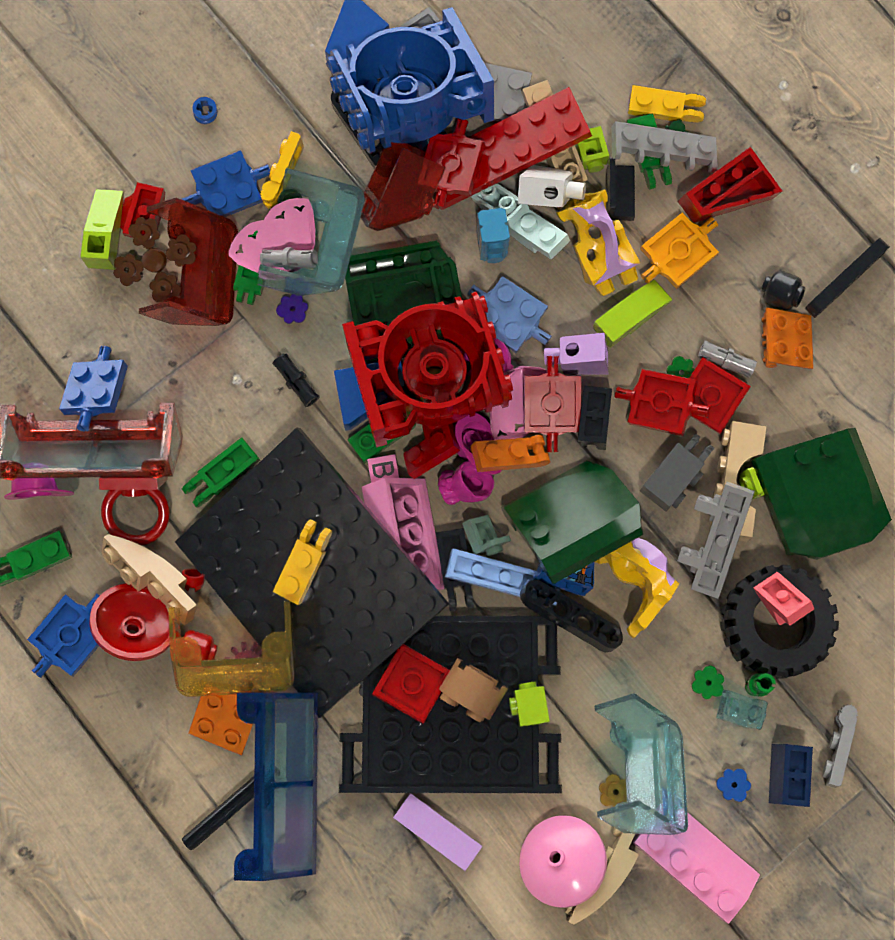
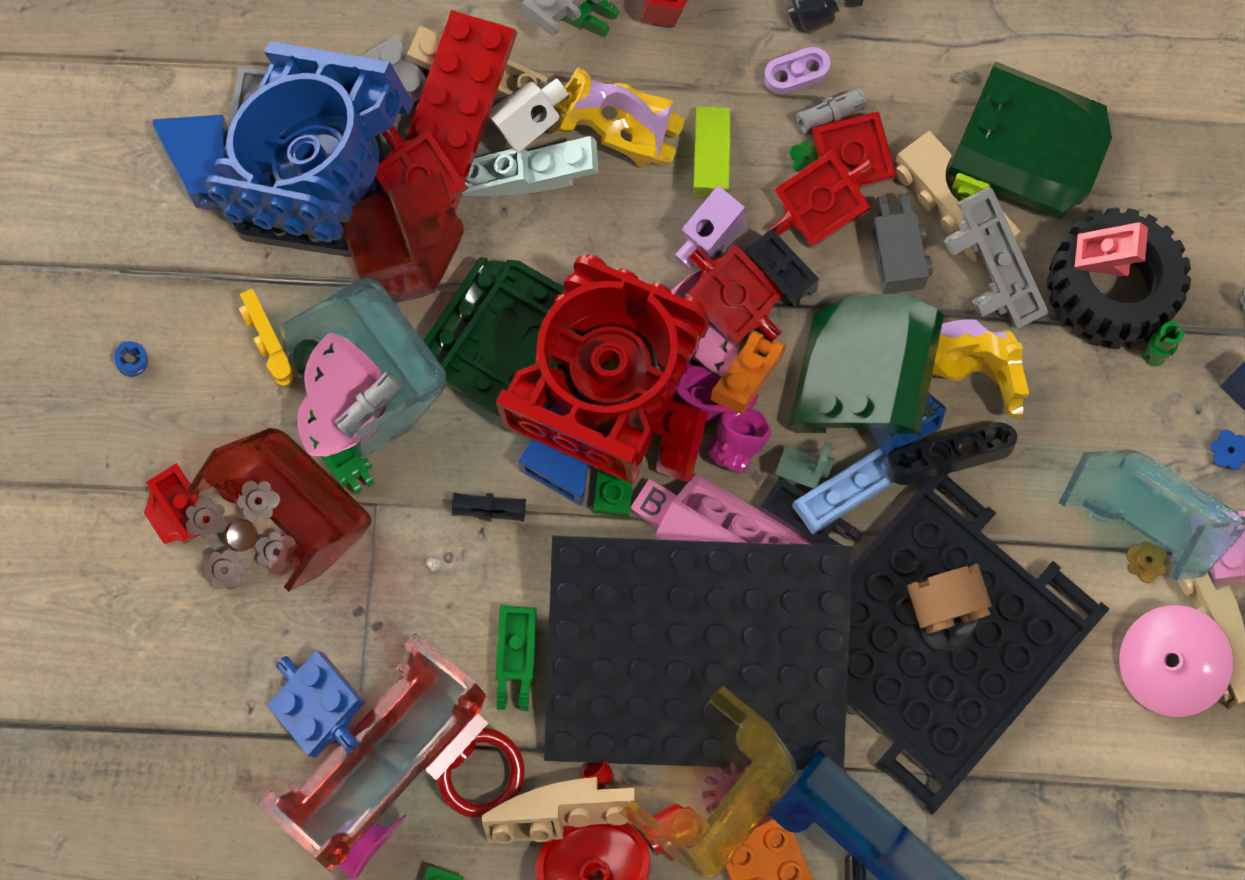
camera: 50 degrees left, 5 degrees down
(102, 230) = (160, 557): lime slope -> none
(227, 185) = (229, 402): blue plate -> none
(294, 302) = (411, 441): dark purple plant -> none
(302, 564) = (690, 651): yellow hinge -> none
(411, 683) = (891, 651): red plate -> none
(437, 832) = (1048, 754): lavender tile -> none
(493, 235) = (523, 203): dark azure brick -> none
(513, 314) = (614, 243): medium blue plate -> none
(529, 705) = (1007, 560): lime brick -> none
(596, 145) = (531, 44): lime brick -> none
(620, 191) = (576, 52): black panel -> none
(679, 250) = (690, 60): light orange plate -> none
(714, 689) = (1120, 382): green plant -> none
(734, 315) = (794, 70): none -> lavender plate
(742, 710) = (1171, 381): clear light blue bracket -> none
(787, 339) = (861, 43): orange hinge -> none

